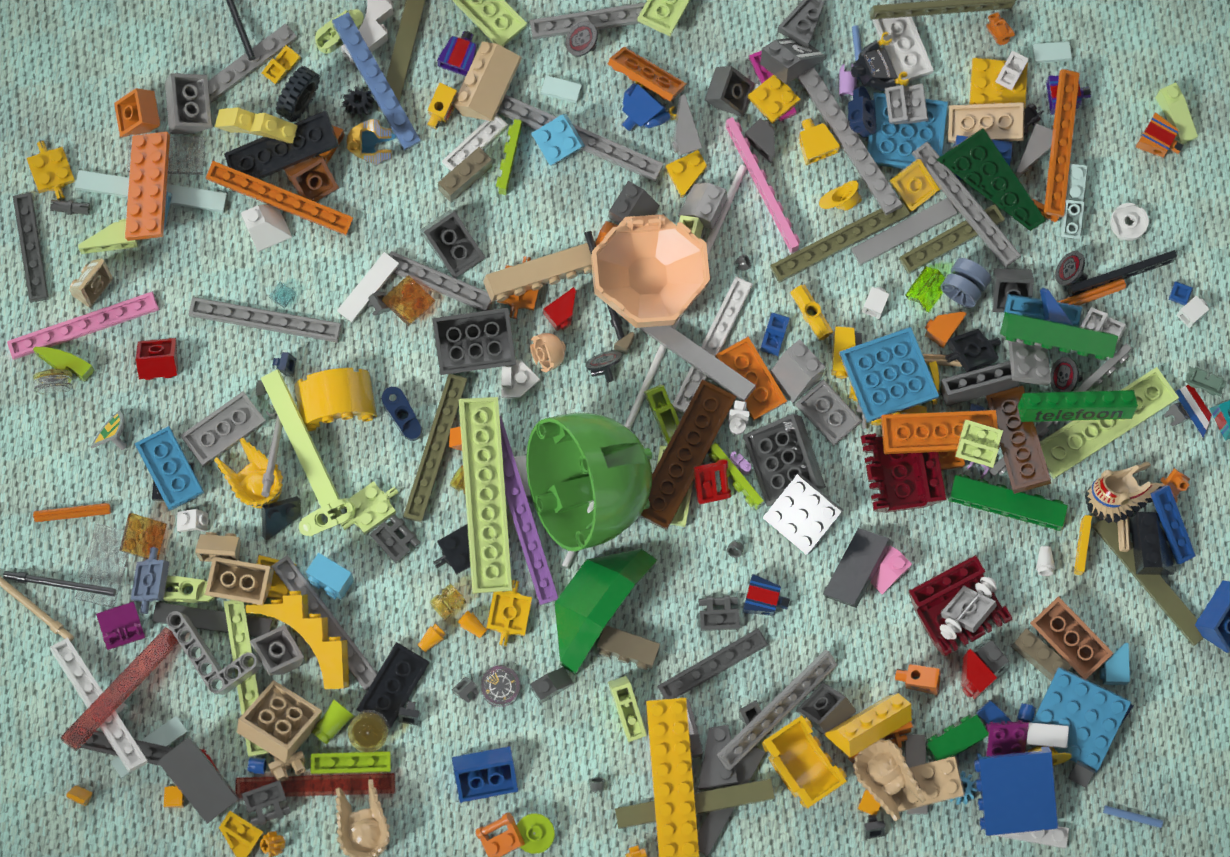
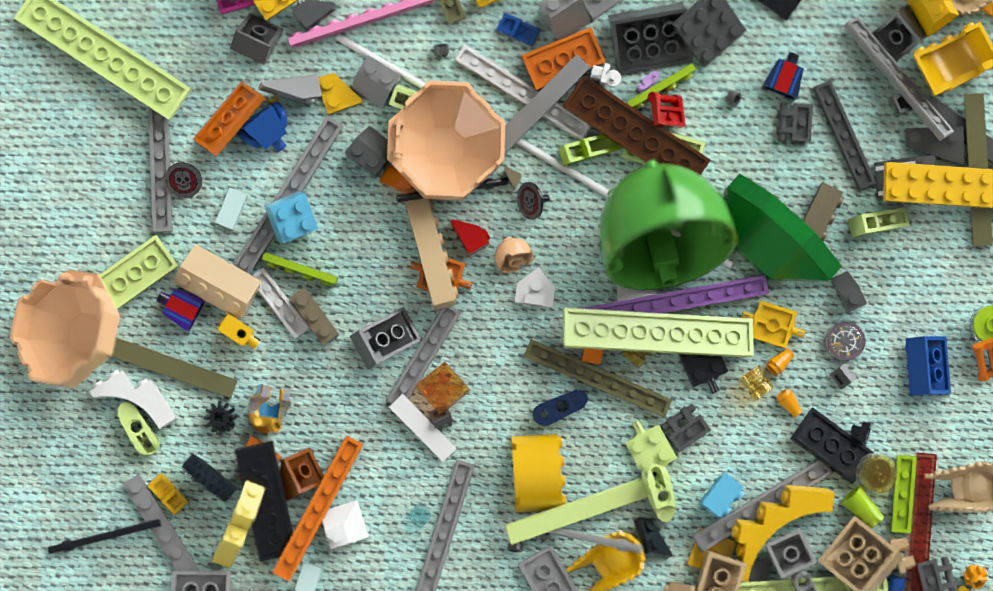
camera: 85 degrees left, 10 degrees up
(285, 364) = (494, 518): dark blue tile -> none
(376, 81) = (201, 396): medium blue plate -> none
(474, 341) = (493, 327): dark grey slope -> none
(597, 784) = (948, 256): dark grey hinge -> none

